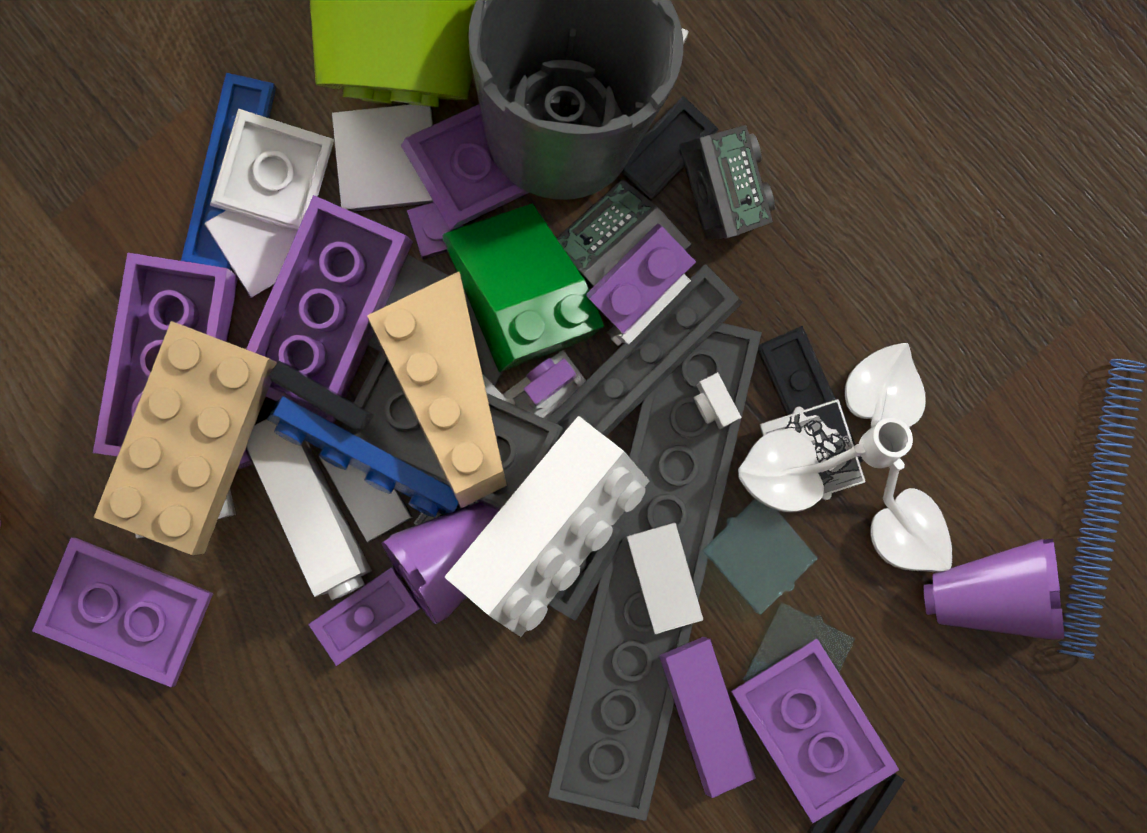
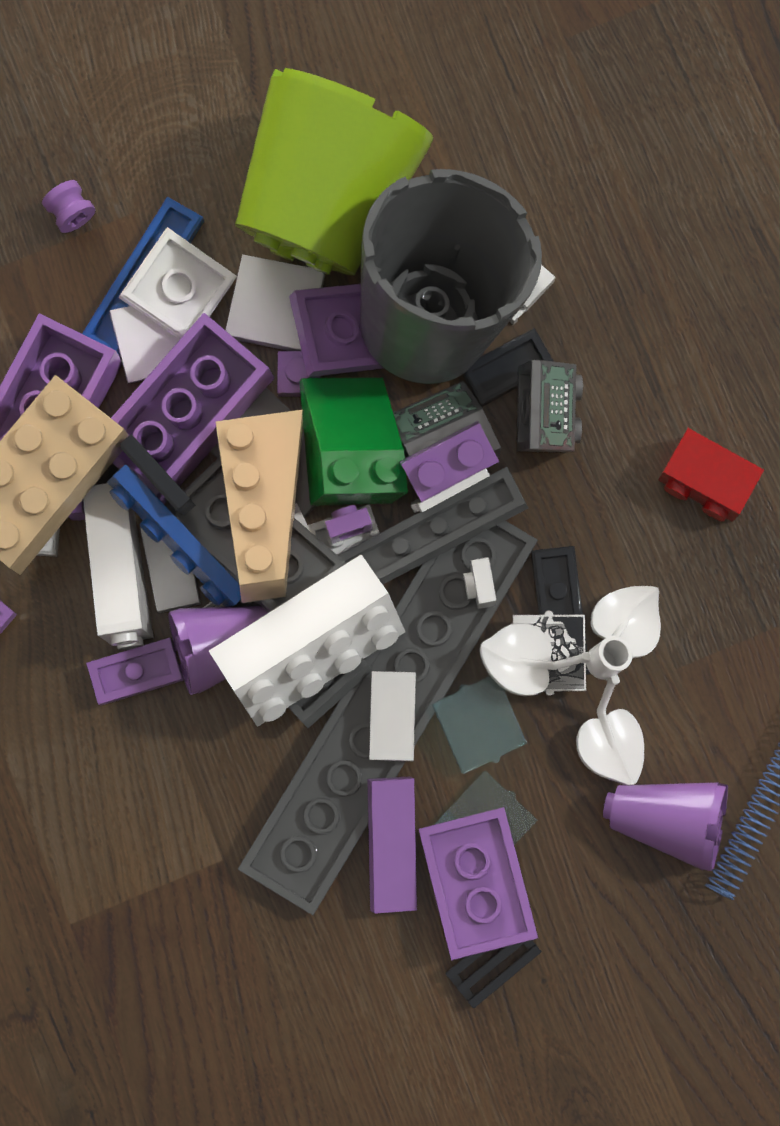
camera: 20 degrees right, 5 degrees down
(119, 118) = (68, 206): none -> medium lavender wheel
(928, 202) = (710, 476): none -> red brick

